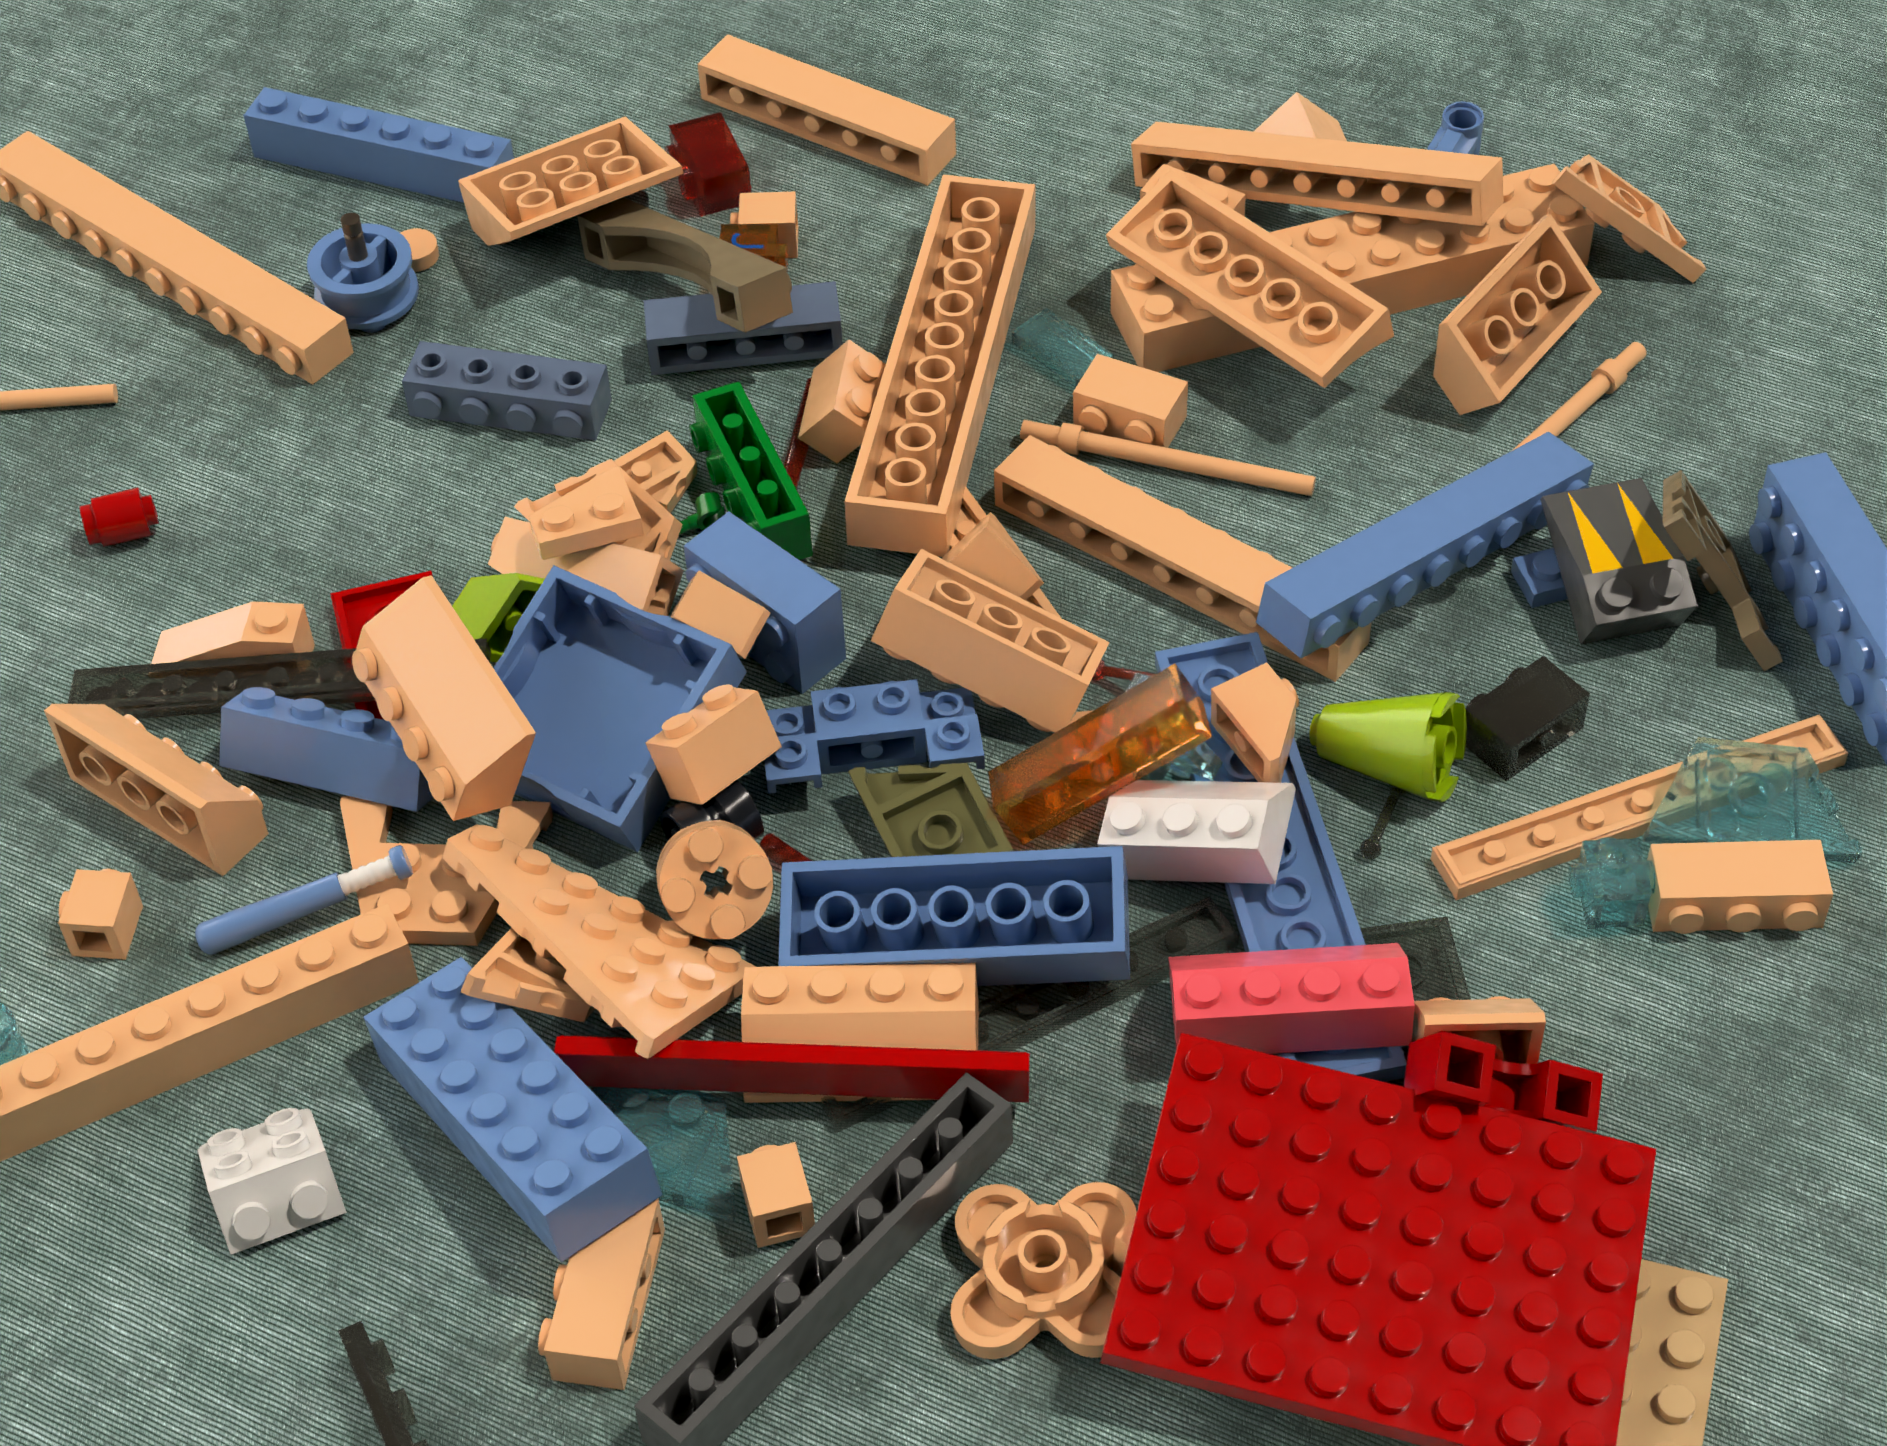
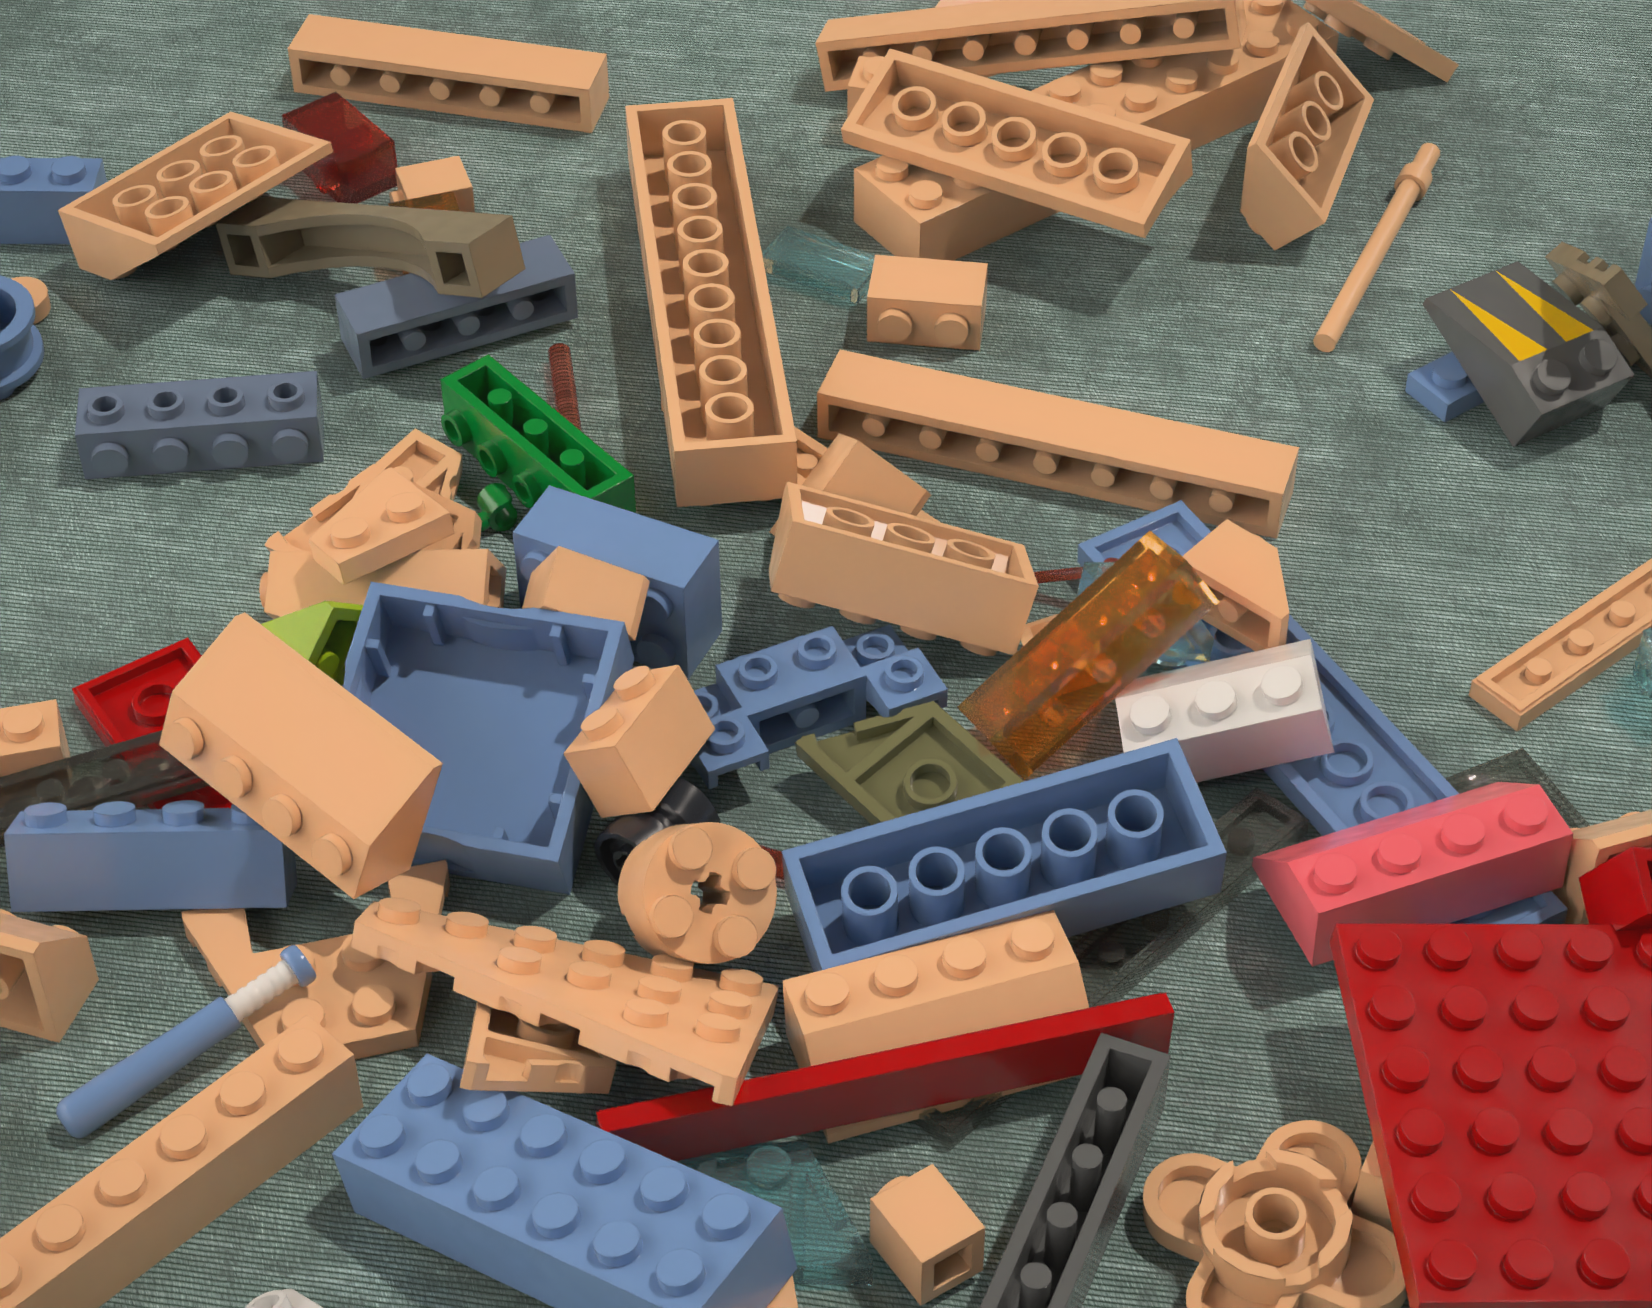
camera: 20 degrees left, 5 degrees down
(841, 401) = (608, 358): light nougat brick -> none
(1073, 438) = (995, 349): light nougat bar -> none
(1371, 847) = (1399, 628): clear smoke hinge -> none
(1396, 740) = (1382, 576): lime cone -> none
(1418, 546) = (1319, 377): medium blue brick -> none
(1525, 717) = (1502, 527): clear smoke brick -> none

